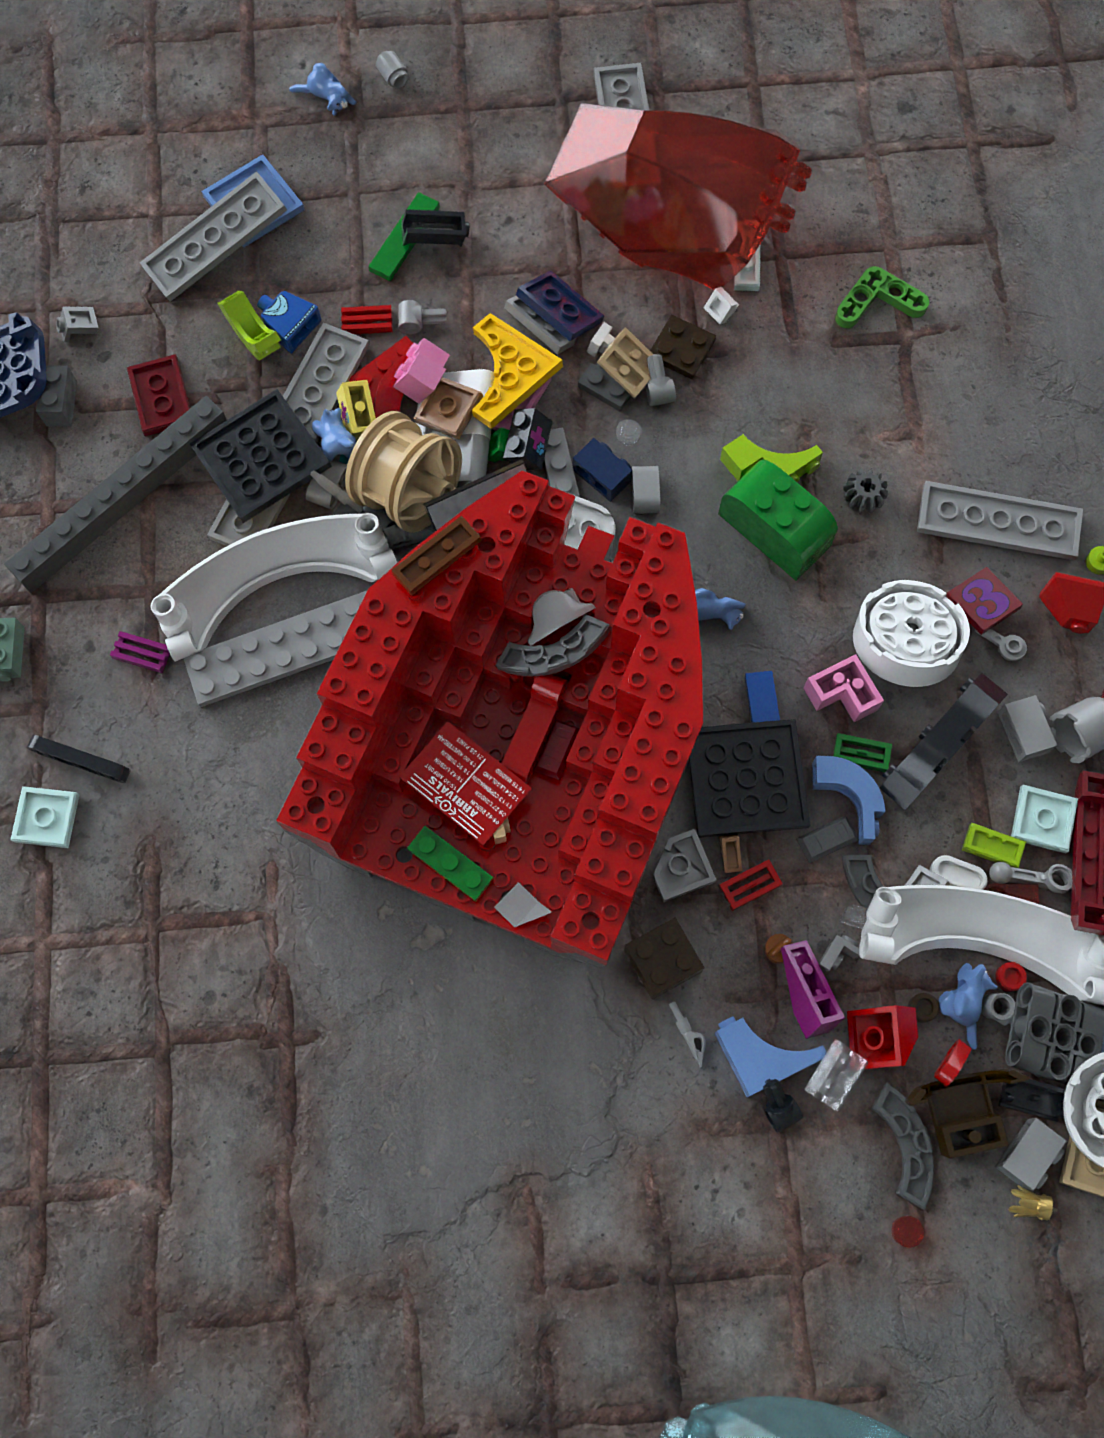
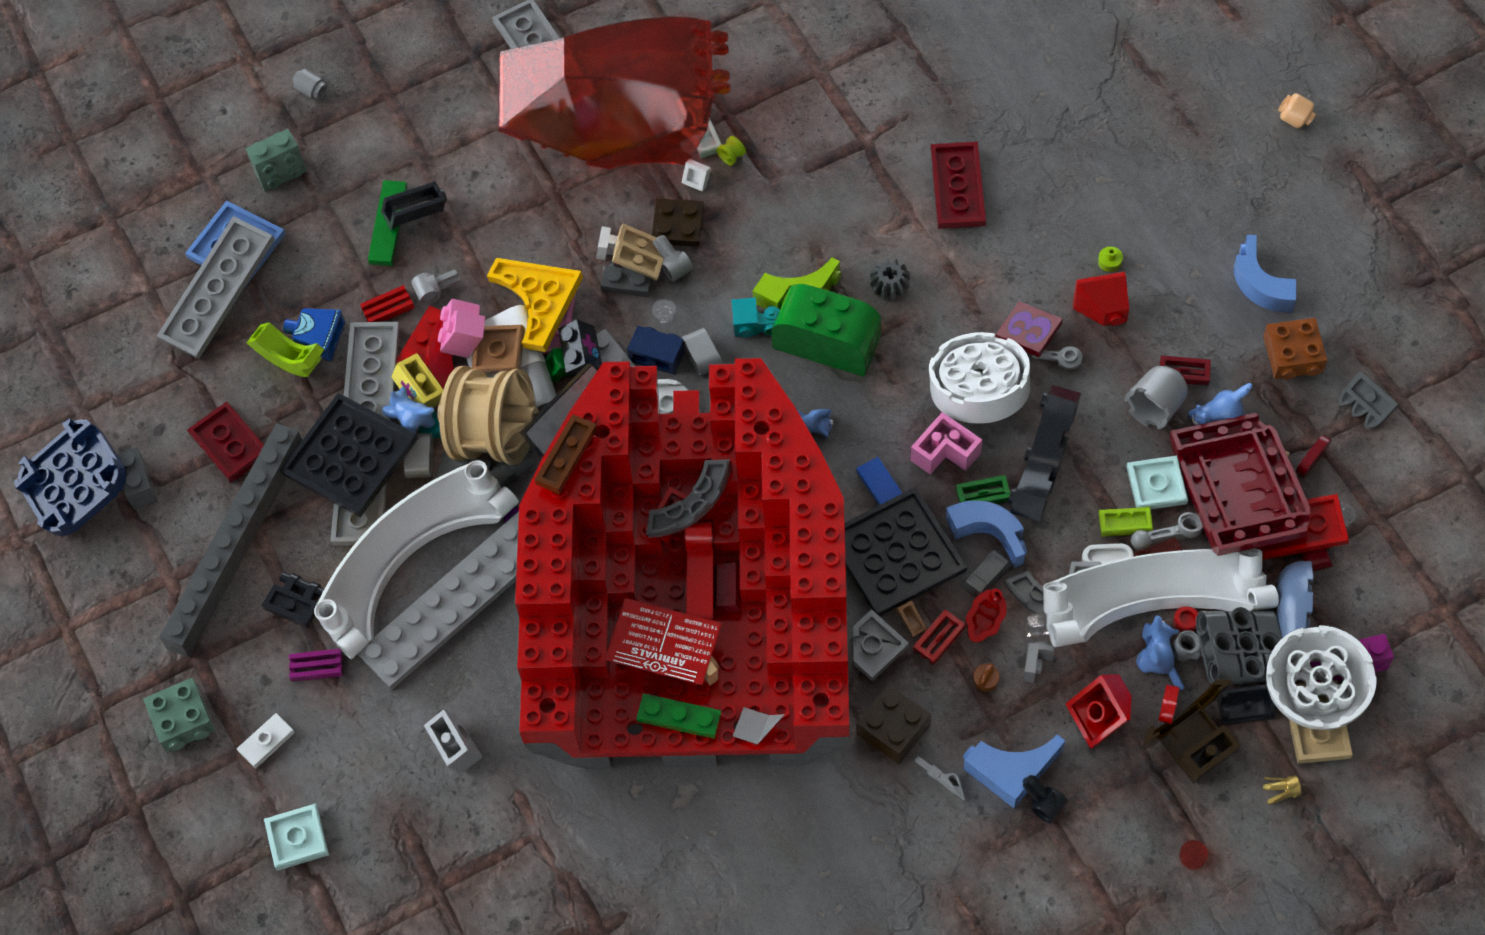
camera: 20 degrees left, 10 degrees down
(61, 707) = (265, 740): none -> white plate
(76, 321) = (121, 408): light grey bracket -> none
(78, 759) = (303, 775): black beam -> none
(142, 582) = (290, 604): none -> black plate
(229, 787) = (453, 741): none -> light grey brick
(324, 131) = (276, 160): none -> sand green brick
(326, 86) = (255, 120): medium blue animal -> none
(335, 490) = (427, 456): light grey hand -> none
(537, 325) = (544, 249): light grey plate -> none
(554, 610) = (677, 468): light grey hat -> none
(560, 305) = (555, 228): dark blue plate -> none
(705, 475) = (749, 321): none -> teal brick
(766, 294) = (731, 150): none -> lime wheel
(807, 884) = (985, 615): none -> red arm
(809, 991) = (1028, 699): magenta slope -> none
(836, 1075) = (1078, 755): clear bracket -> none
(880, 289) = (827, 109): bright green beam -> none
(914, 1144) = (1167, 784): dark grey tile -> none
(926, 1007) = (1129, 672): dark brown tile -> none
(978, 419) = (957, 185): none -> dark red plate
(1000, 520) = (1012, 259): light grey plate -> none
(1027, 728) = (1111, 416): light grey brick -> none
(1031, 1154) = (1264, 749): light grey brick -> none

